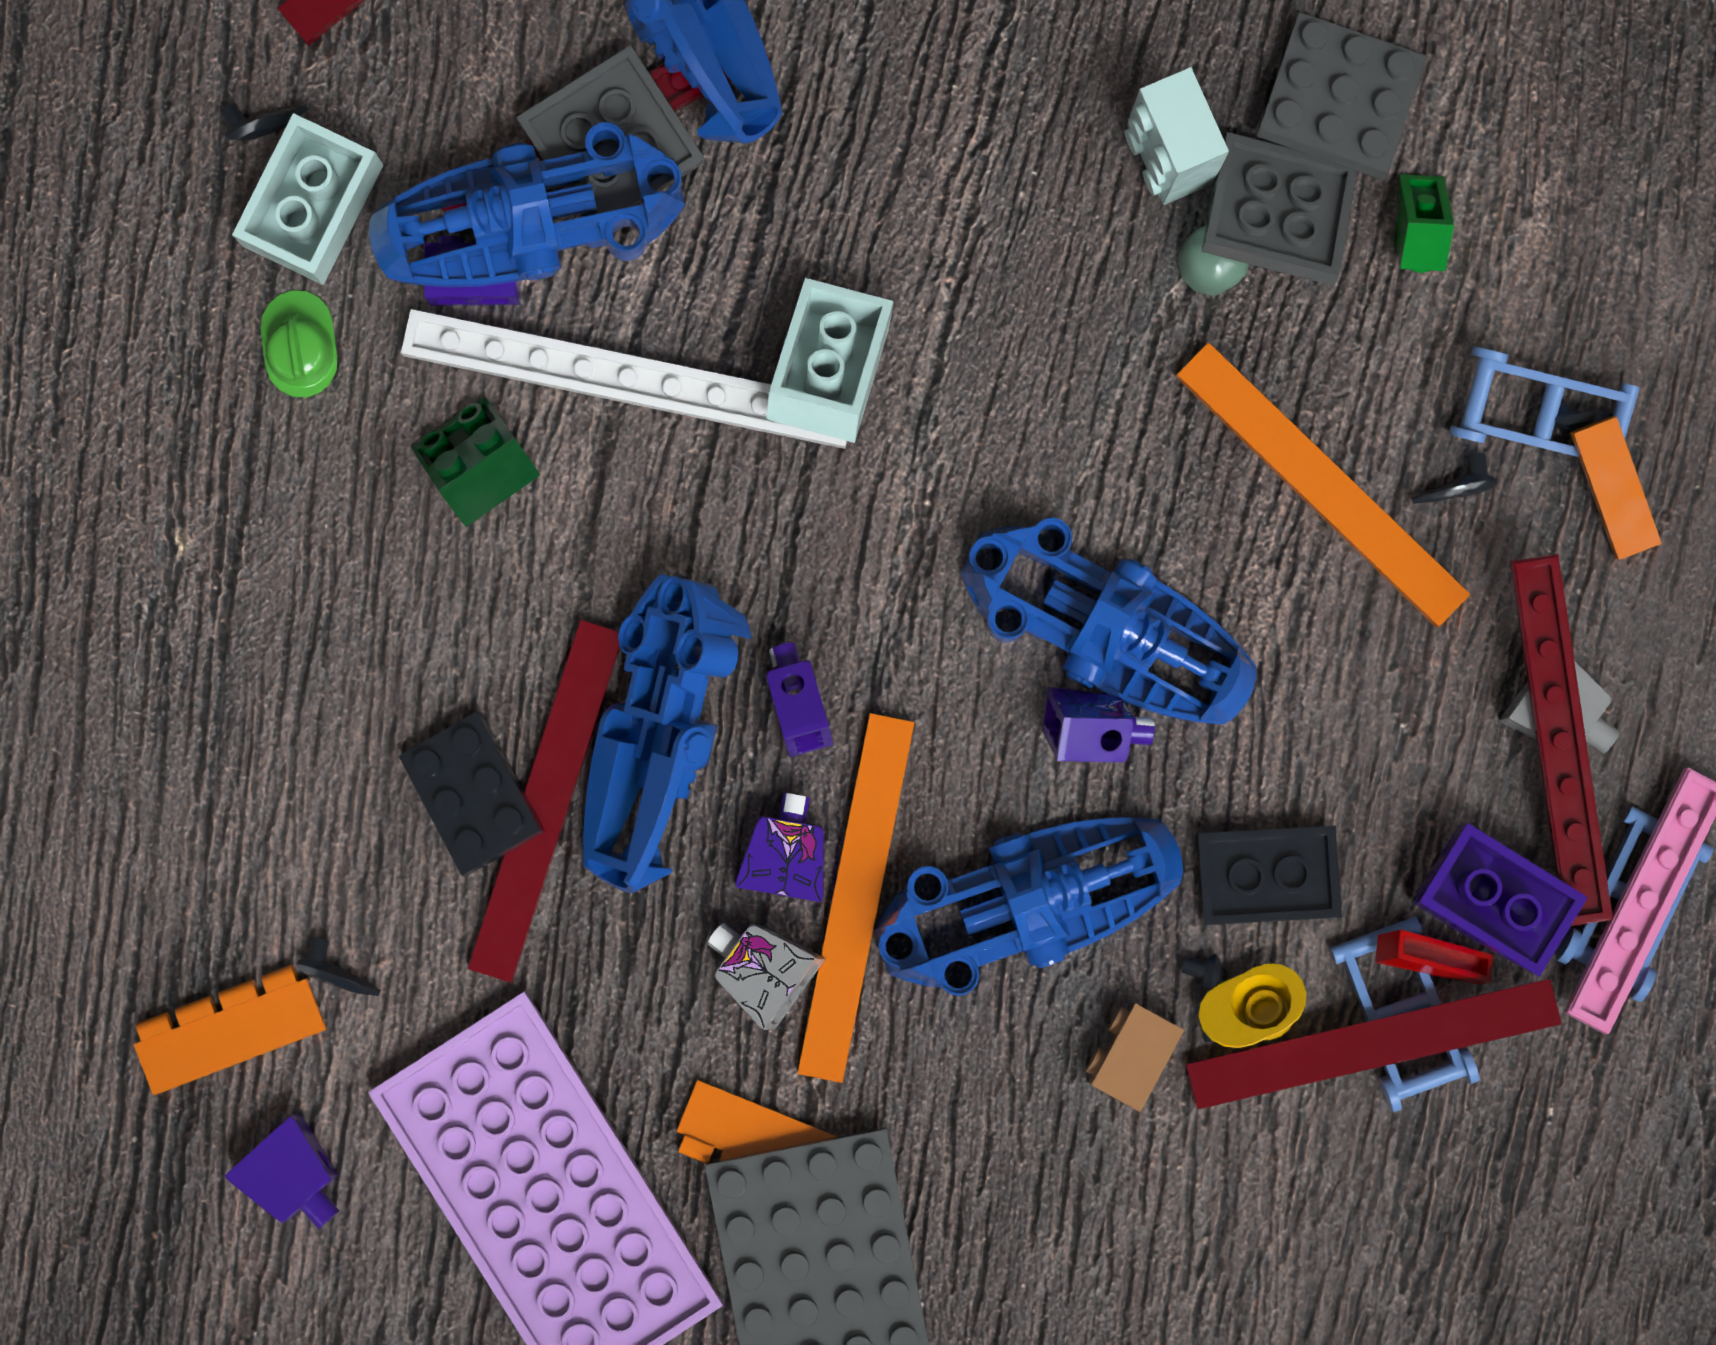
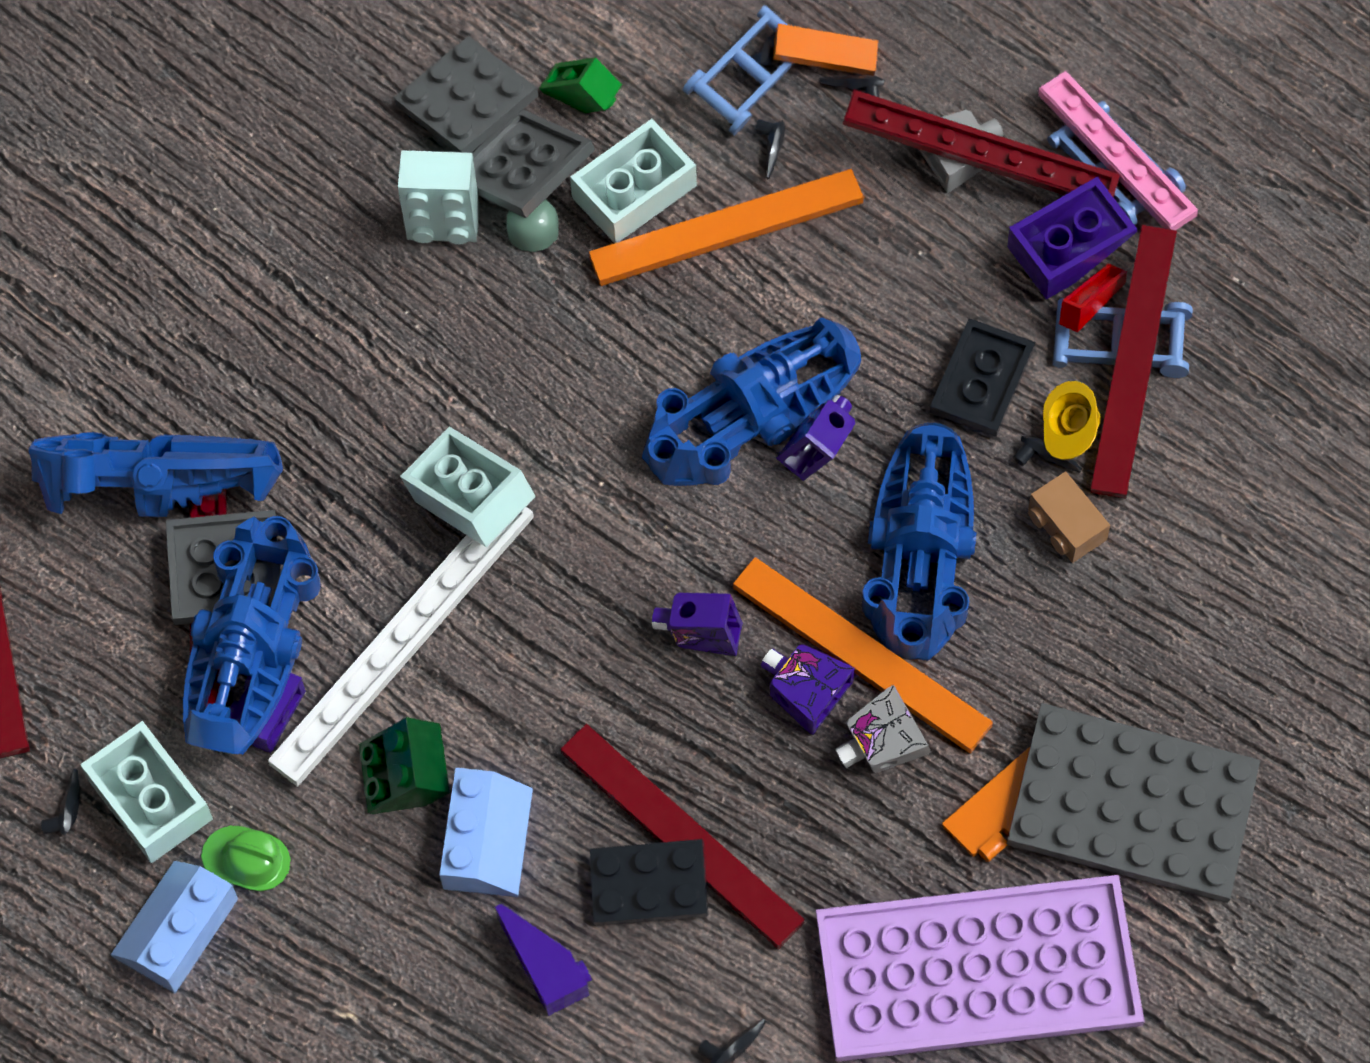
camera: 60 degrees left, 20 degrees down
(182, 309) = (176, 924): none -> light blue slope
(326, 728) = (548, 965): none -> dark purple slope
(441, 589) = (485, 833): none -> light blue slope
(657, 733) = (674, 718): blue piece -> none
(1321, 349) = (633, 181): none -> light aqua brick
(1591, 542) = (856, 82): none -> black bar

